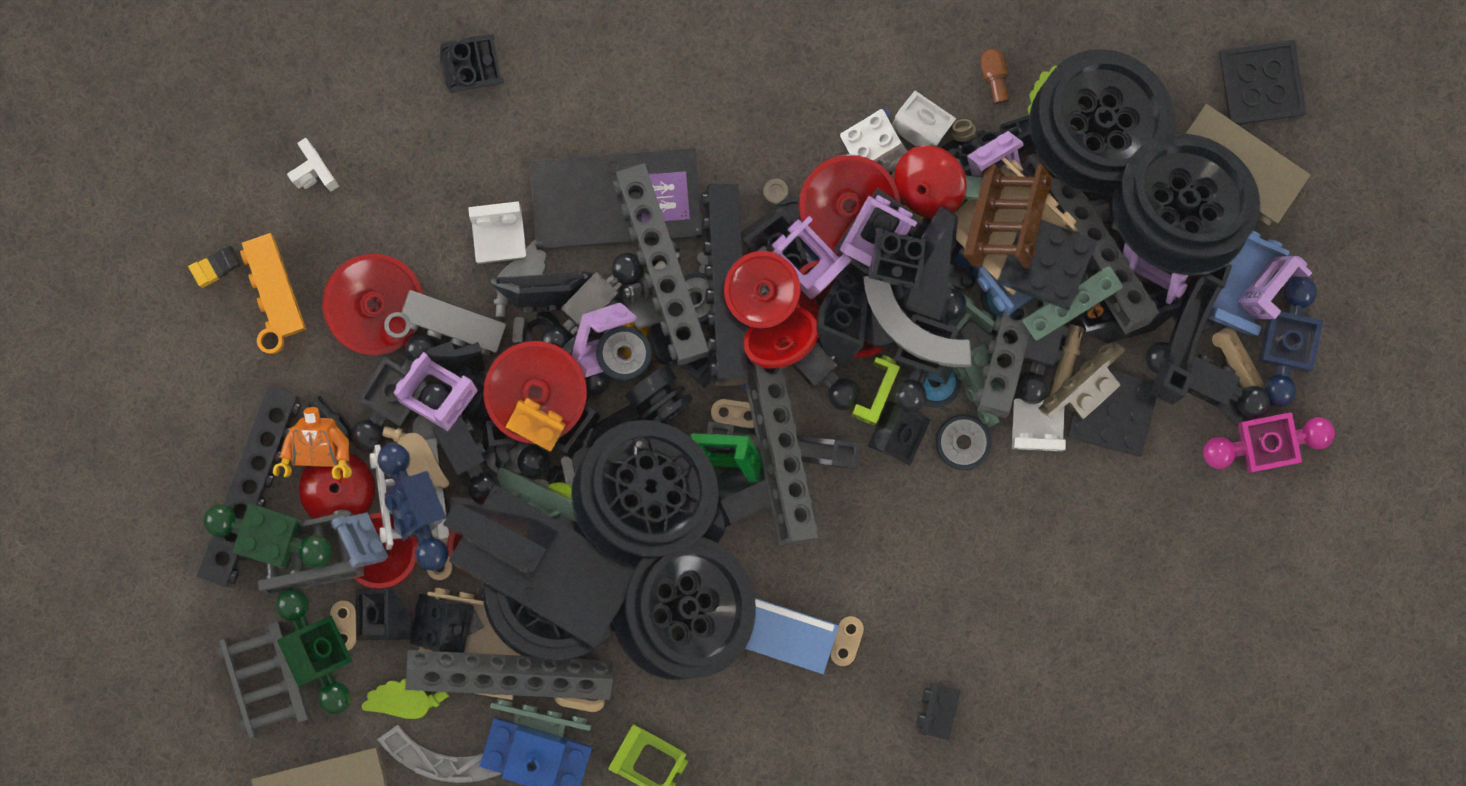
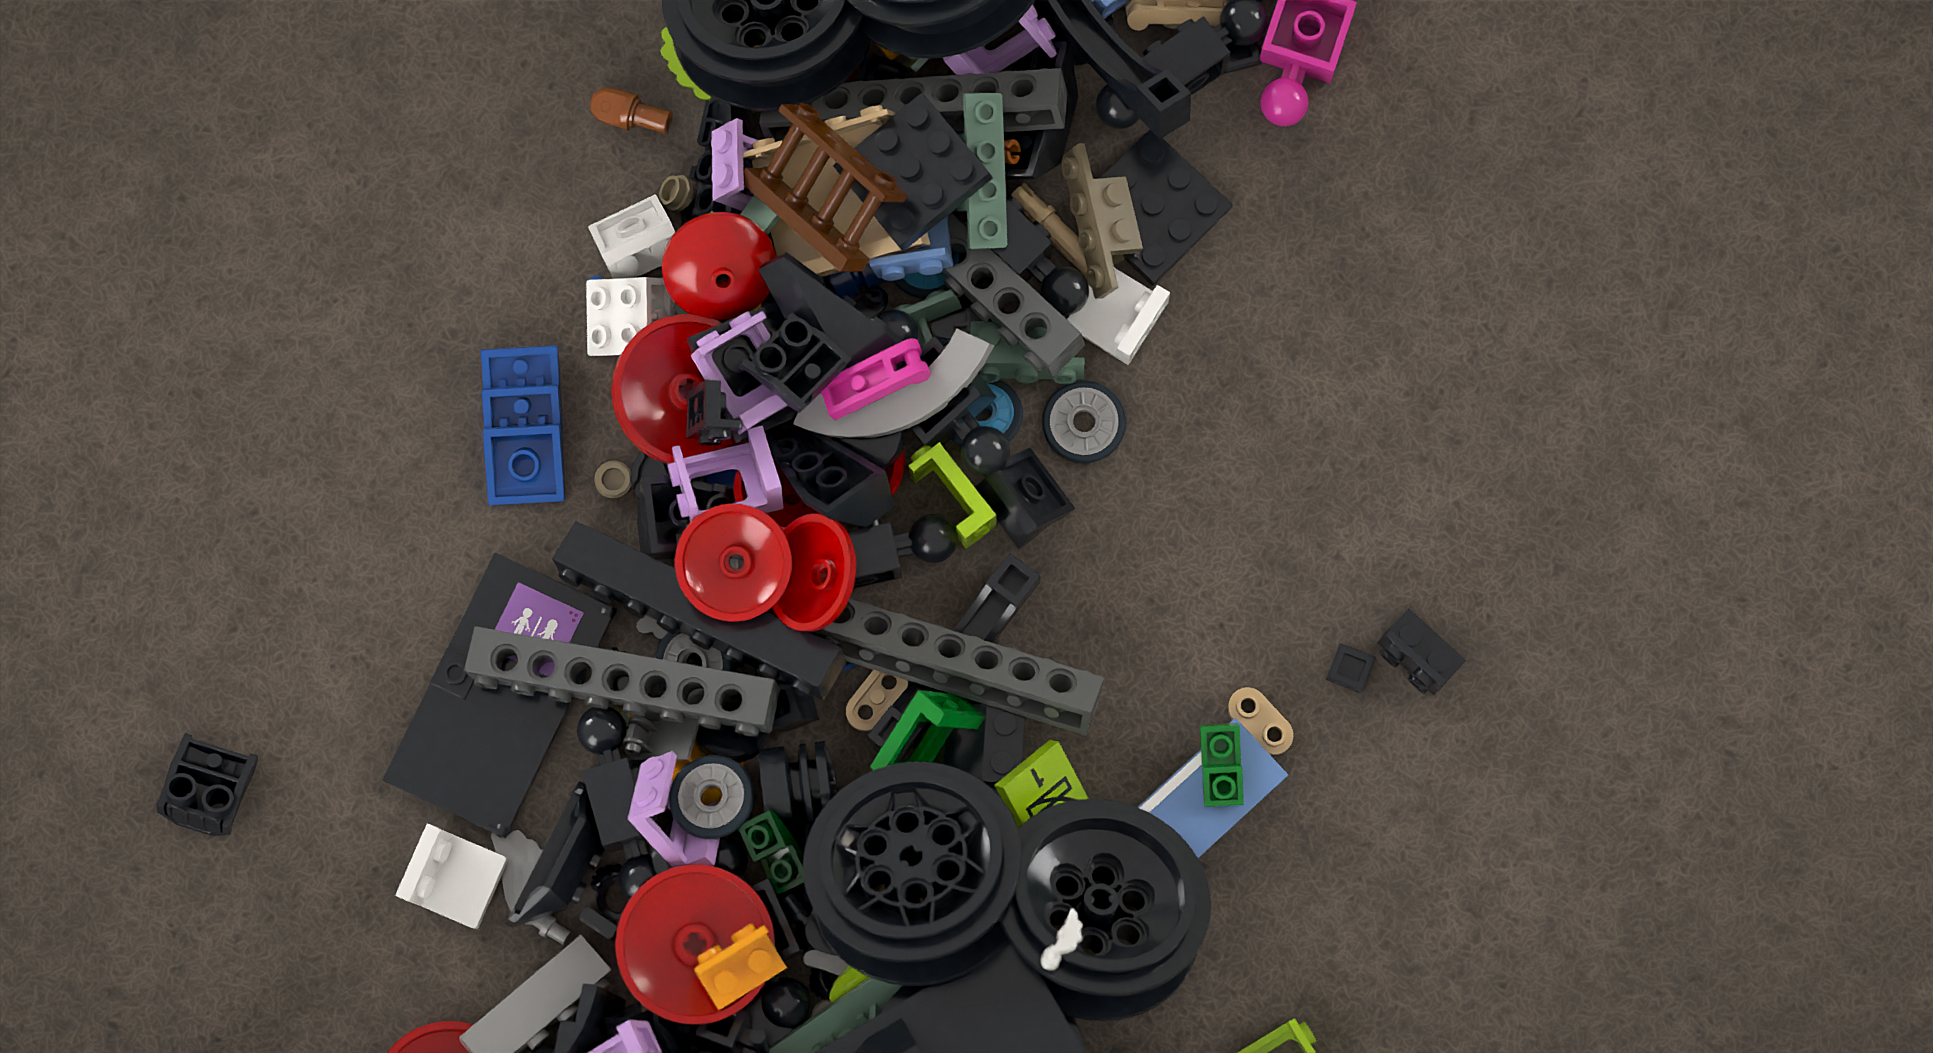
camera: 55 degrees left, 5 degrees down
(615, 406) = (776, 849): none -> dark green slope
(651, 601) = (1067, 941): none -> white piece
(737, 535) = (1040, 783): none -> lime tile
(777, 121) = (523, 425): none -> blue slope
(806, 632) = (1221, 764): none -> green slope
(840, 222) = (704, 409): none -> black bracket
(907, 676) = (1350, 668): none -> black tile
(914, 309) = (875, 378): none -> dark pink plate

